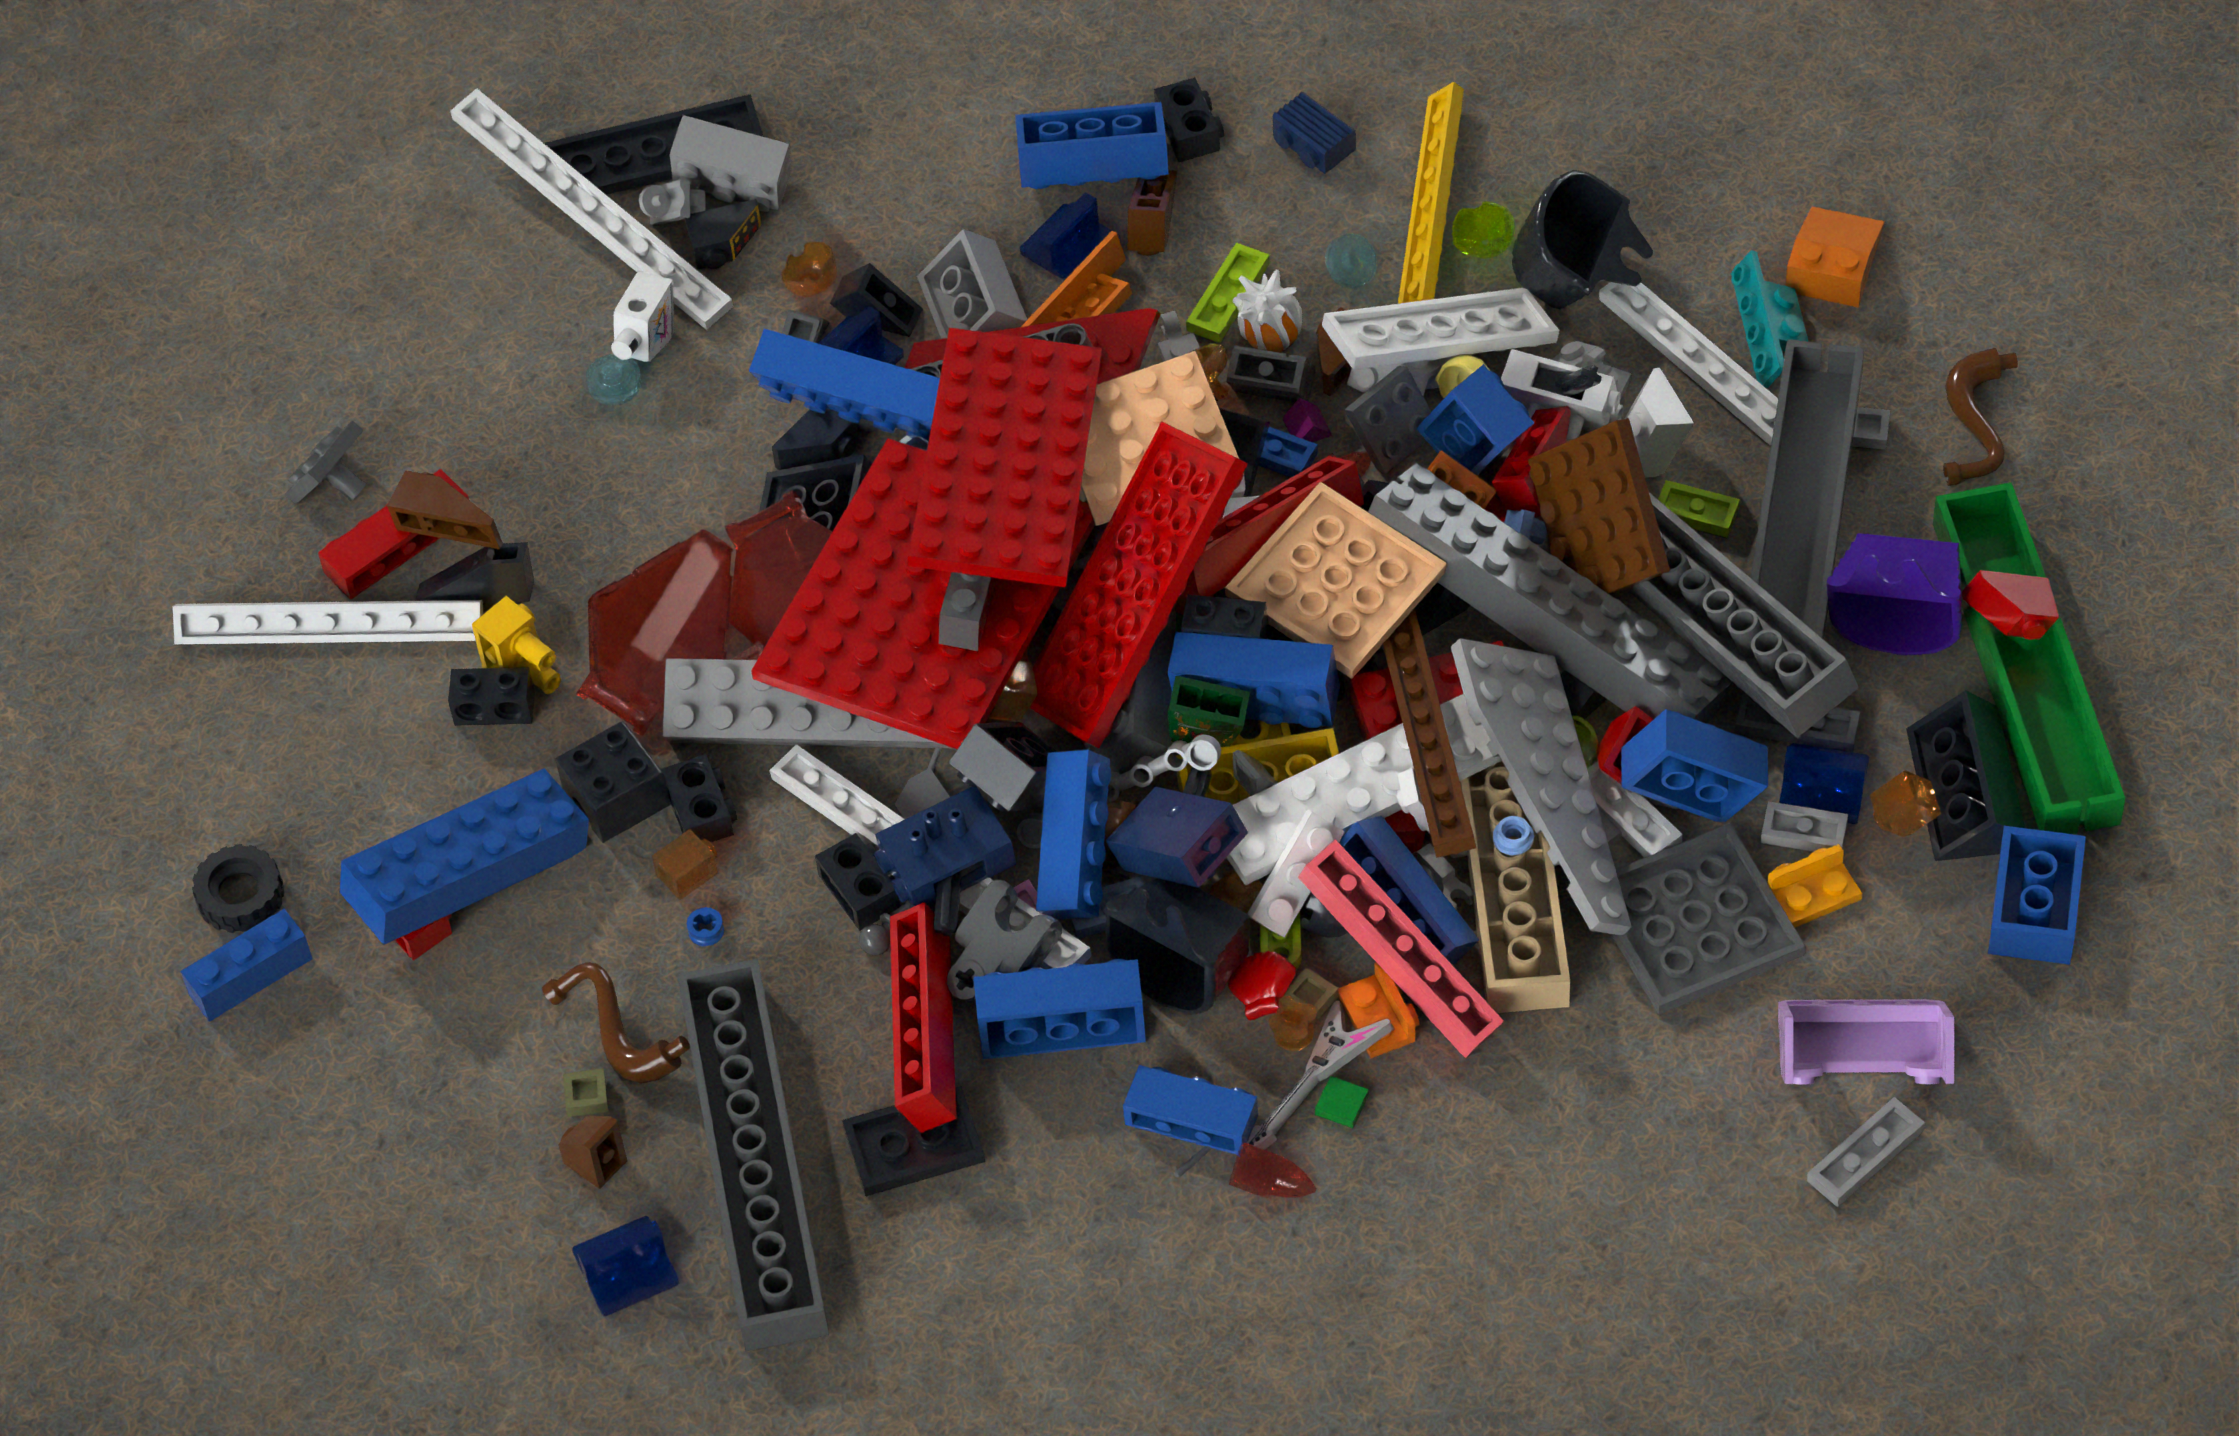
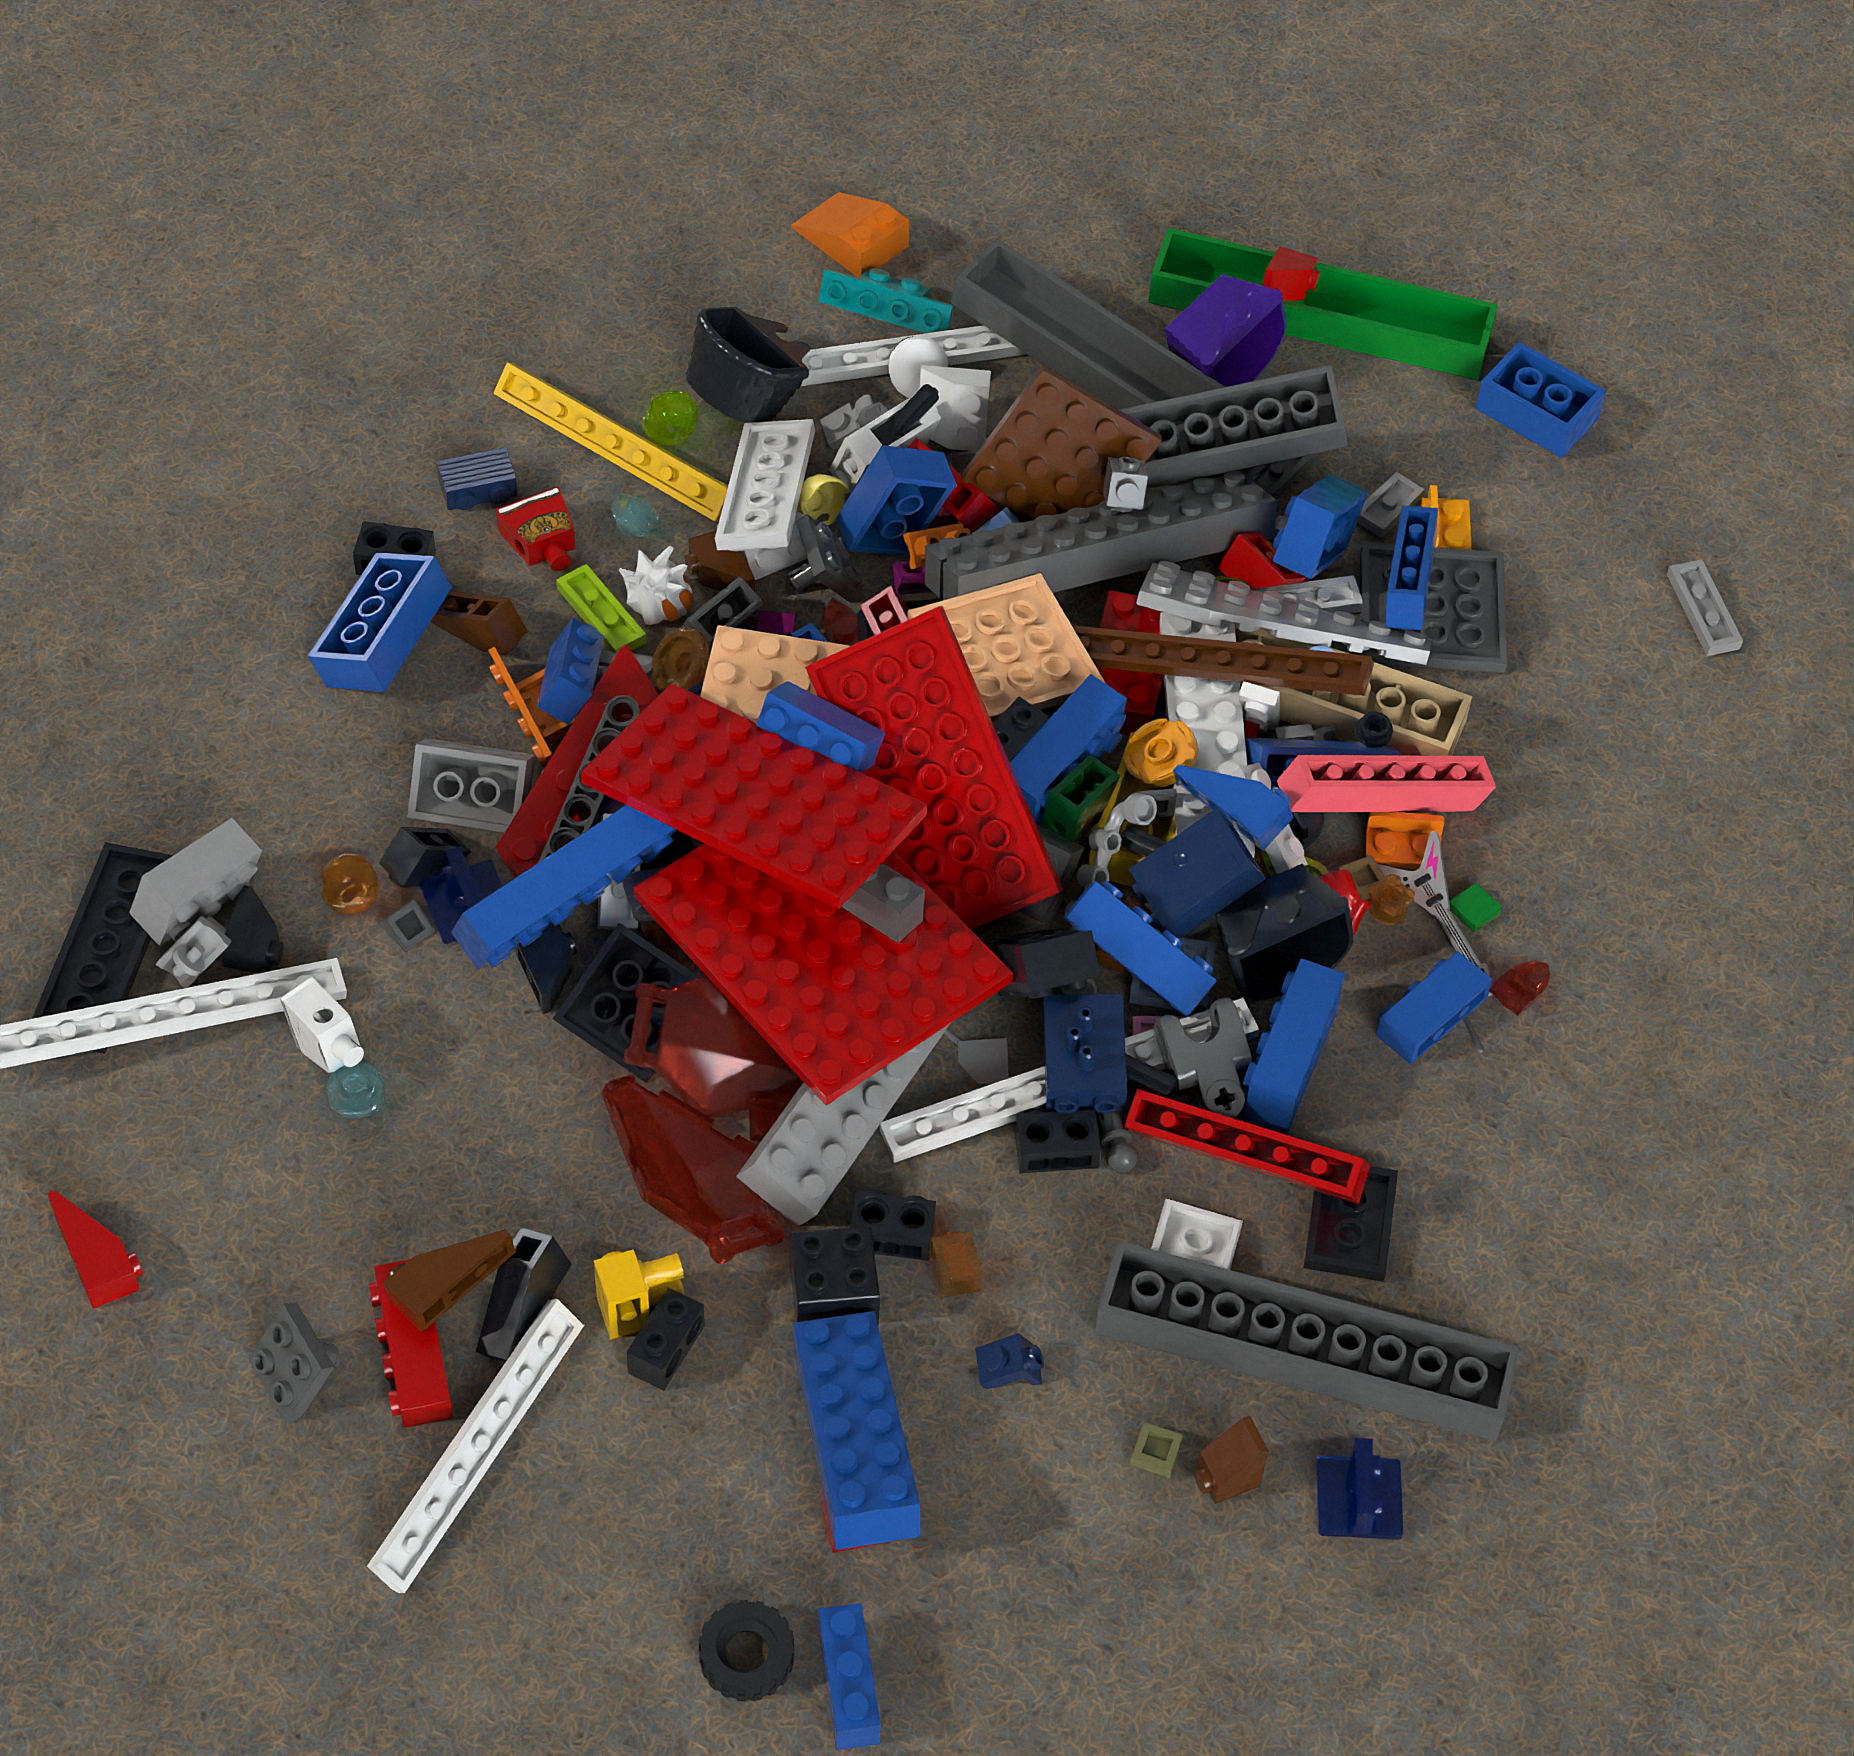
camera: 70 degrees left, 0 degrees up
(357, 298) = (96, 1253): none -> red slope
(613, 949) = (1009, 1361): none -> dark blue bracket
(625, 1059) = (1137, 1403): reddish brown animal -> none
(706, 916) = (1023, 1292): blue bush -> none
(814, 1032) = (1197, 1234): none -> white plate
(1066, 237) = (460, 690): clear blue bracket -> none
(1109, 468) = (820, 726): none -> blue brick
(1124, 292) = (570, 671): none -> blue brick
(1267, 835) = (1247, 803): none -> blue slope
(1288, 204) = (539, 528): none -> red torso
(1308, 754) = (1157, 751): none -> light orange tile
(1463, 906) = (1374, 722): none -> black plate
(1596, 574) = (1125, 484): none -> brick
(1691, 372) = (907, 359): none -> white piece
(1691, 860) = (1411, 568): none -> blue brick
(1824, 779) = (1357, 463): clear blue bracket -> none
(1866, 1037) = (1605, 545): lavender windscreen -> none
(1904, 804) = (1411, 435): clear orange brick -> none
(1960, 388) = (1034, 224): reddish brown animal -> none
(1971, 774) = (1406, 394): black slope -> none

